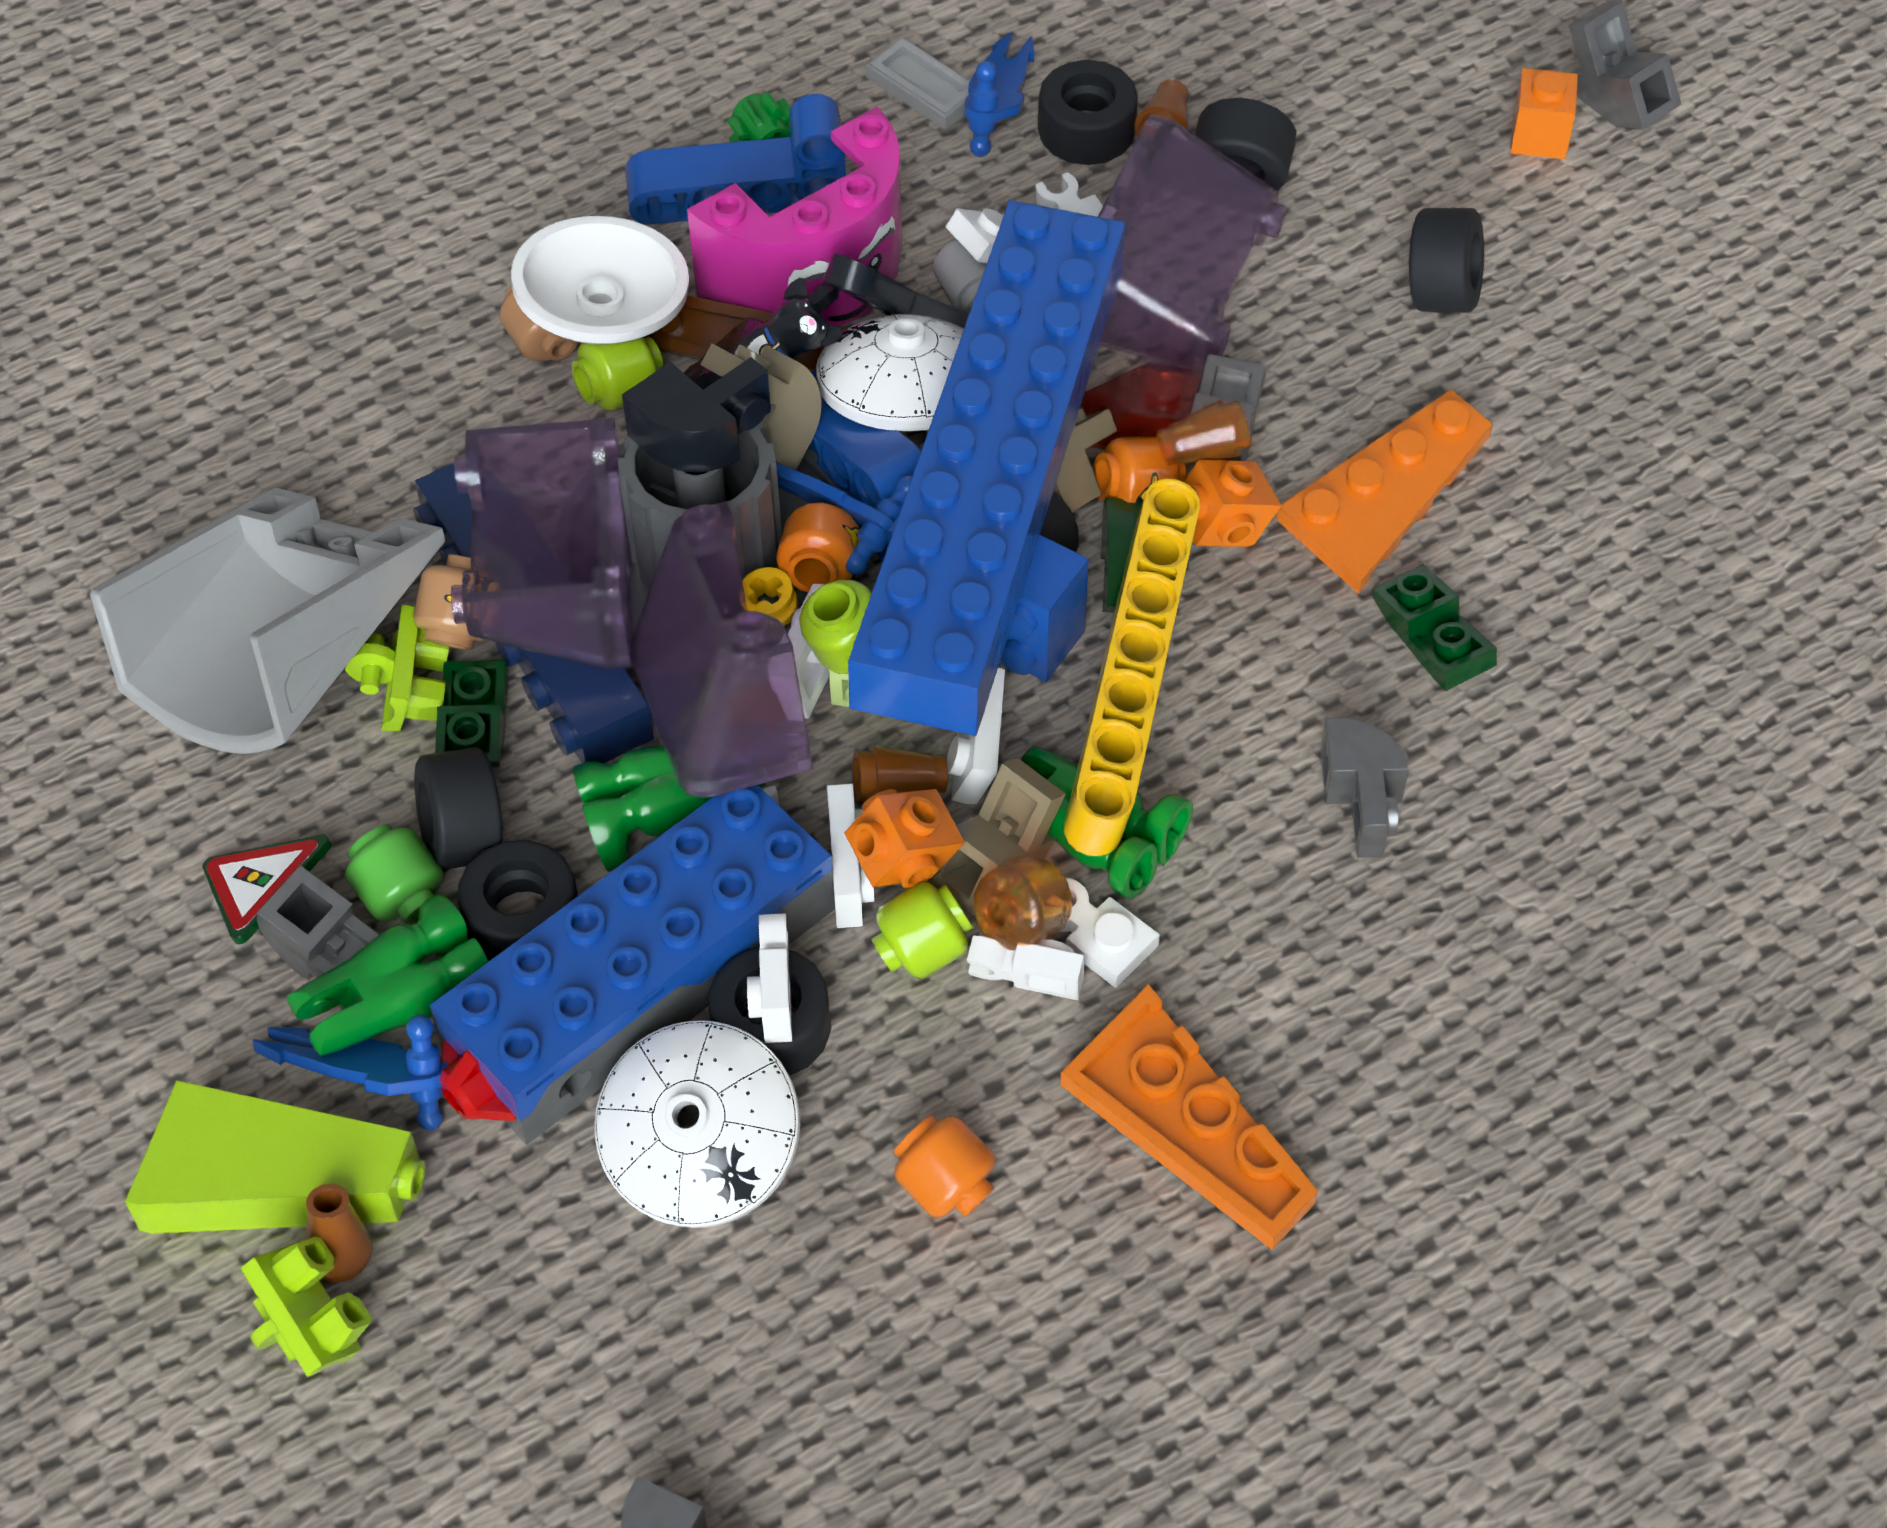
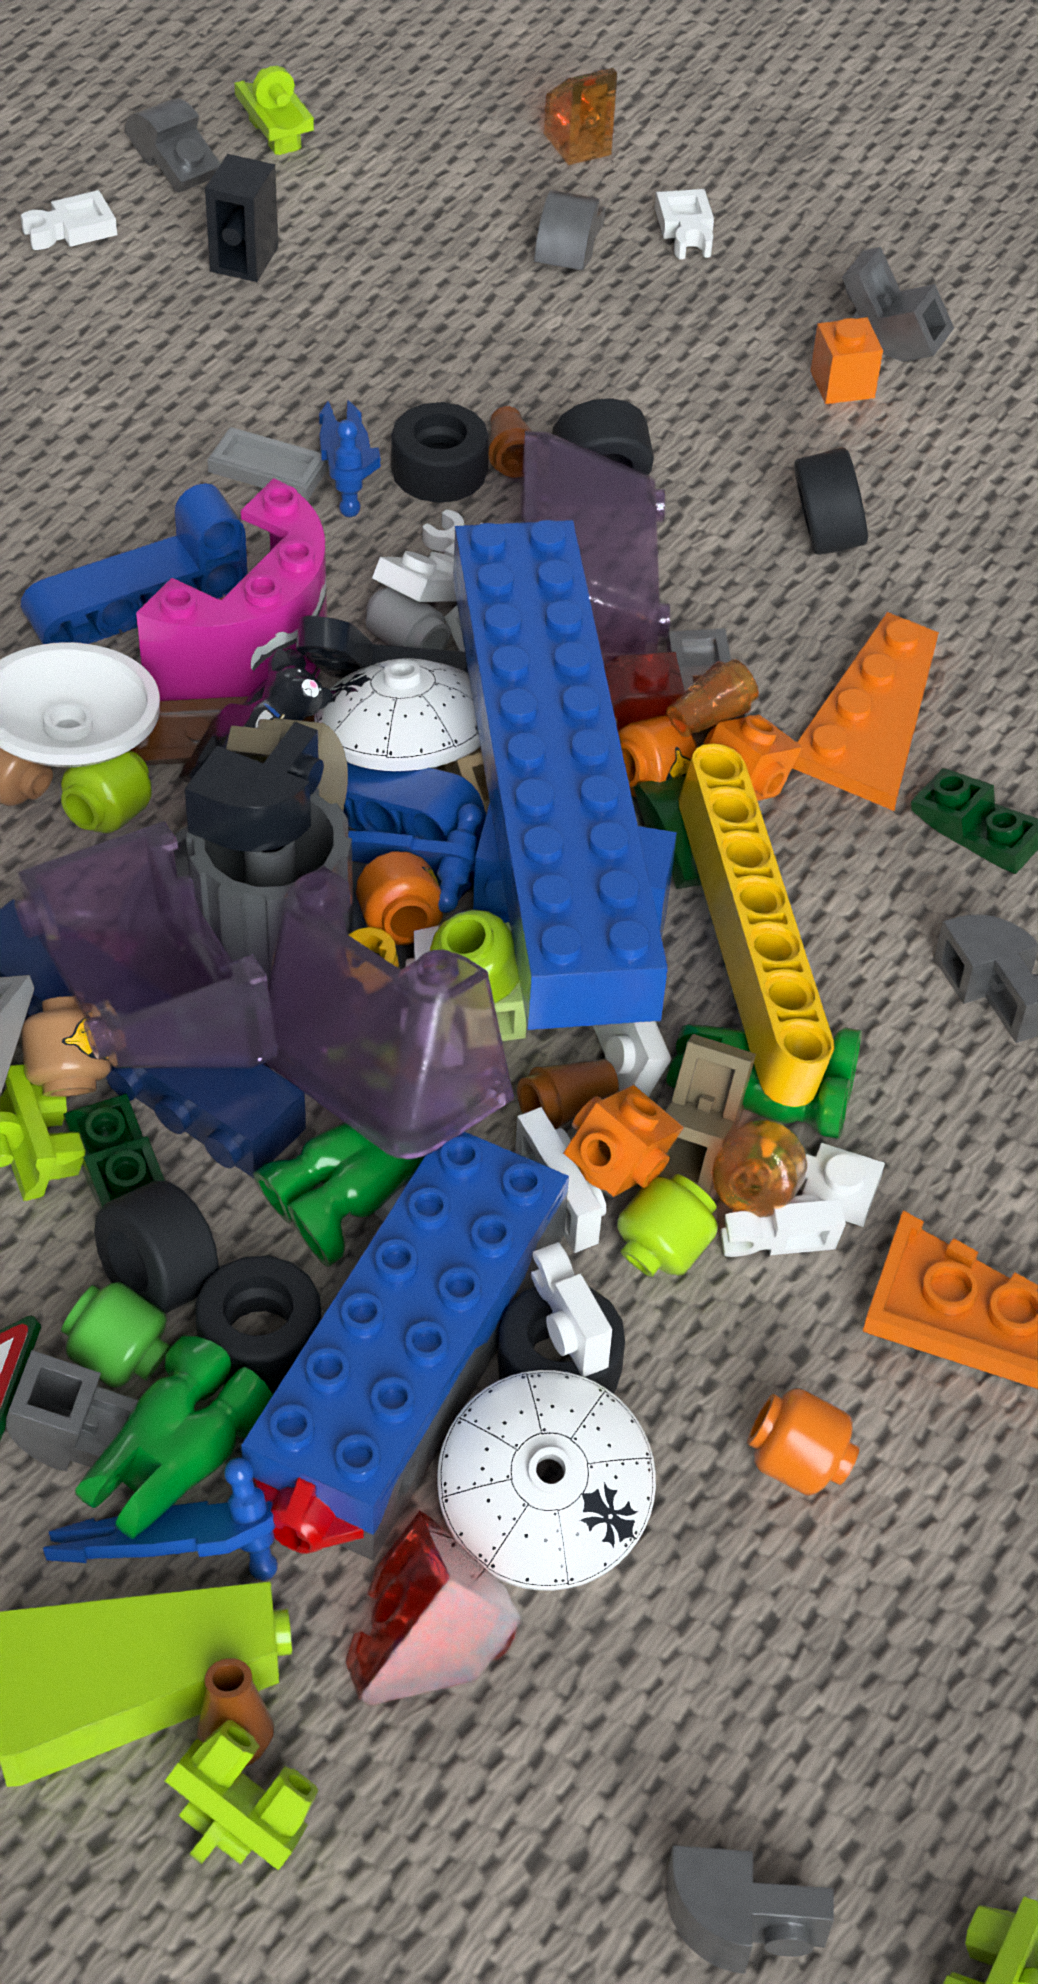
camera: 25 degrees left, 5 degrees down
(542, 1214) = (432, 1620): none -> slope
(759, 118) = (136, 526): green gear -> none

